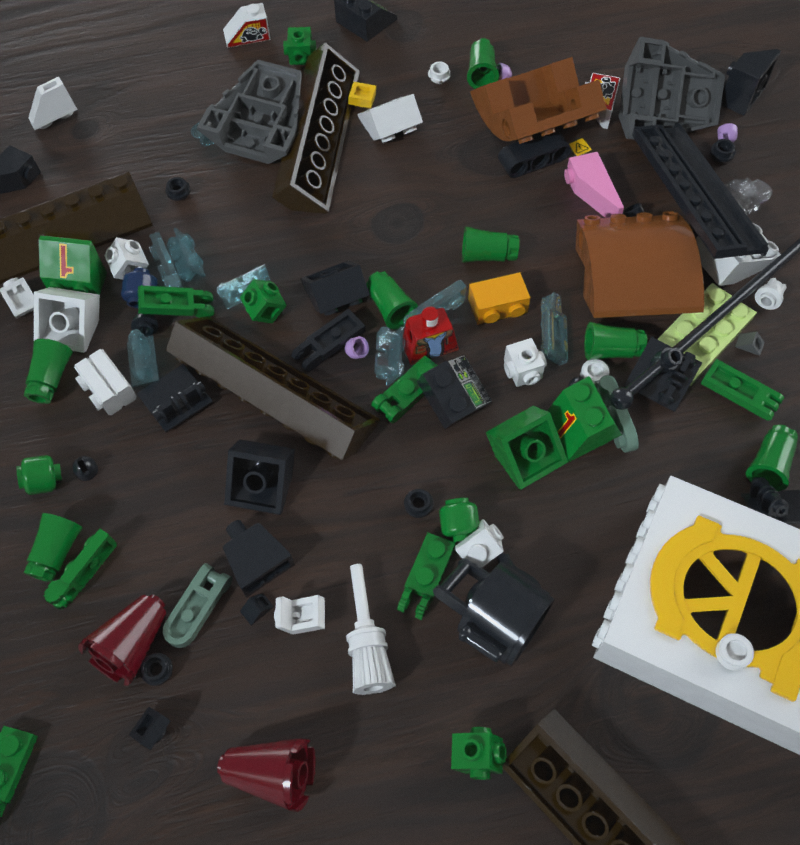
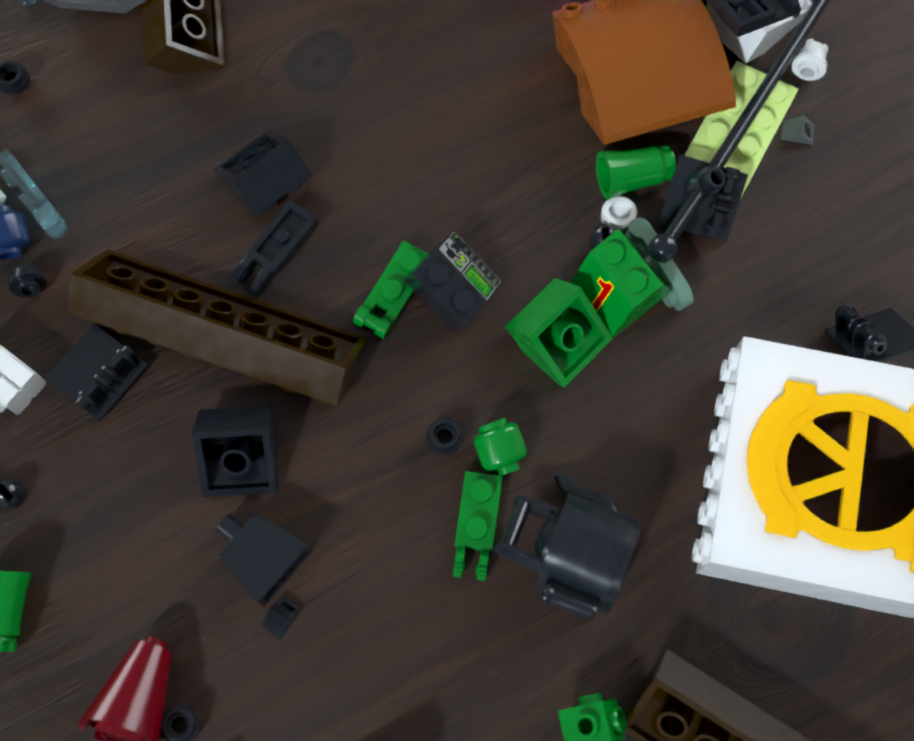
camera: 15 degrees left, 10 degrees up
(80, 570) = (46, 627): green hinge -> none
(142, 358) = (38, 329): clear light blue hinge -> none
(174, 301) = (56, 242): green hinge -> none
(182, 248) = (44, 161): clear light blue hinge -> none
(195, 606) = (205, 636): sand green plate -> none
(233, 289) = (147, 196): clear light blue hinge -> none
(263, 301) = (175, 214): green brick -> none
(300, 614) = (338, 613): white bracket -> none
(359, 350) = (317, 252): lavender hinge -> none
(367, 645) = (429, 627): white piece -> none
(389, 365) = (362, 264): clear light blue hinge -> none
(390, 299) = (341, 175): green plant -> none
(429, 335) = (404, 212): red torso -> none
(448, 298) = (399, 174): clear light blue hinge -> none
(481, 545) = (535, 472): white bracket -> none
(488, 246) = (447, 72): green plant -> none
(499, 298) = (477, 142): light orange brick -> none
(524, 362) = (531, 223): white brick -> none
(554, 329) = (556, 168): clear light blue hinge -> none
(734, 652) = (862, 537): white tile -> none
(742, 390) = (801, 196): green hinge -> none
(775, 457) = (856, 276): green plant -> none

